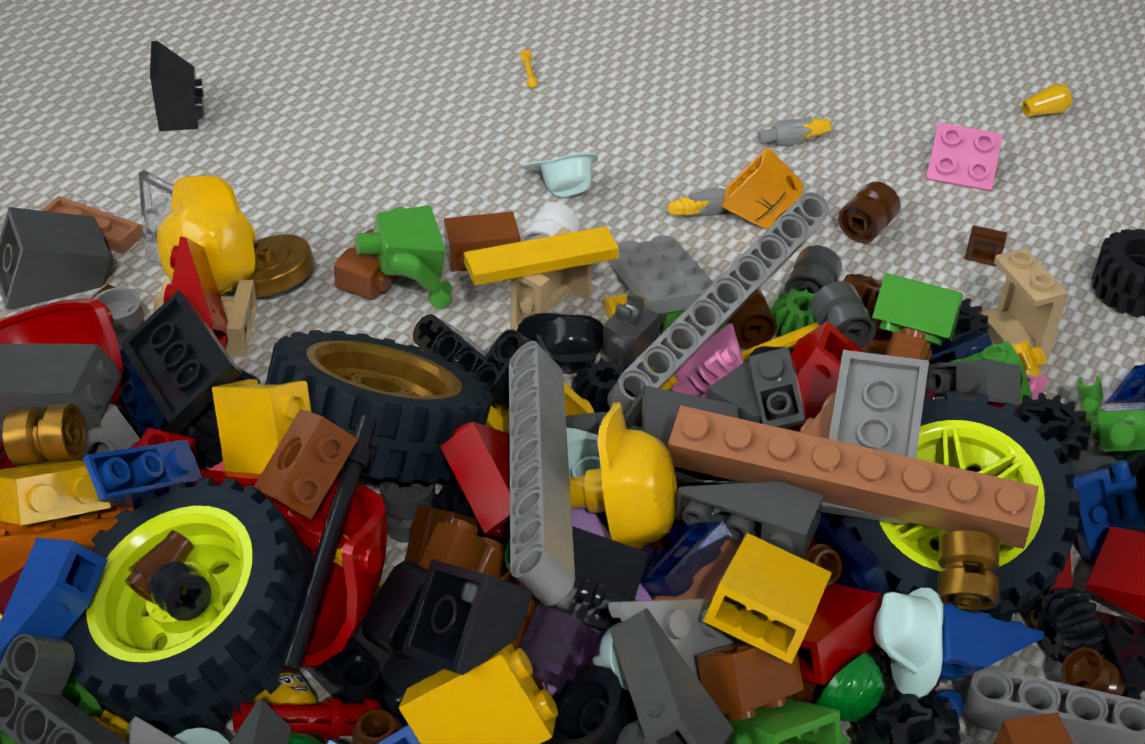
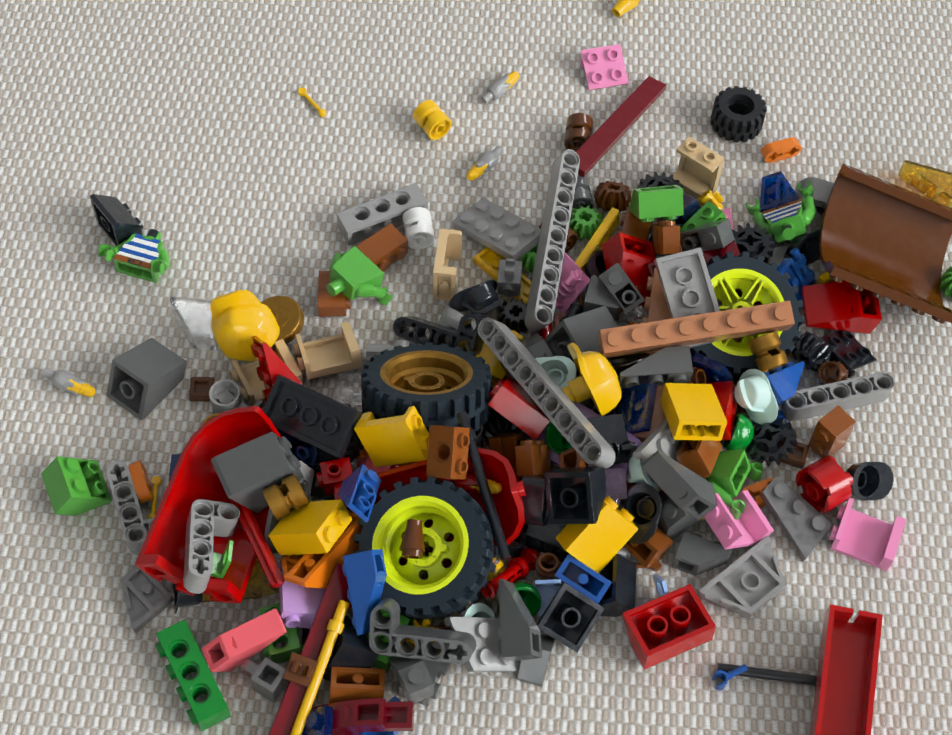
camera: 30 degrees left, 15 degrees up
(118, 232) = (125, 339): nougat tile -> none
(167, 138) = (139, 256): none -> torso
(167, 589) = (436, 547): black wheel -> none
(272, 319) = (328, 354): none -> tan panel
(523, 196) = (373, 215): none -> light grey brick
(540, 255) = (444, 255): yellow tile -> none
(566, 174) = (395, 179): light aqua piece -> none
(667, 129) = (432, 119): none -> yellow wheel
(763, 190) = (519, 146): light orange torso -> none
(845, 310) = (616, 220): dark grey wheel -> none
(929, 220) = (618, 123): none -> dark red tile
(985, 245) = (650, 129): reddish brown tile -> none

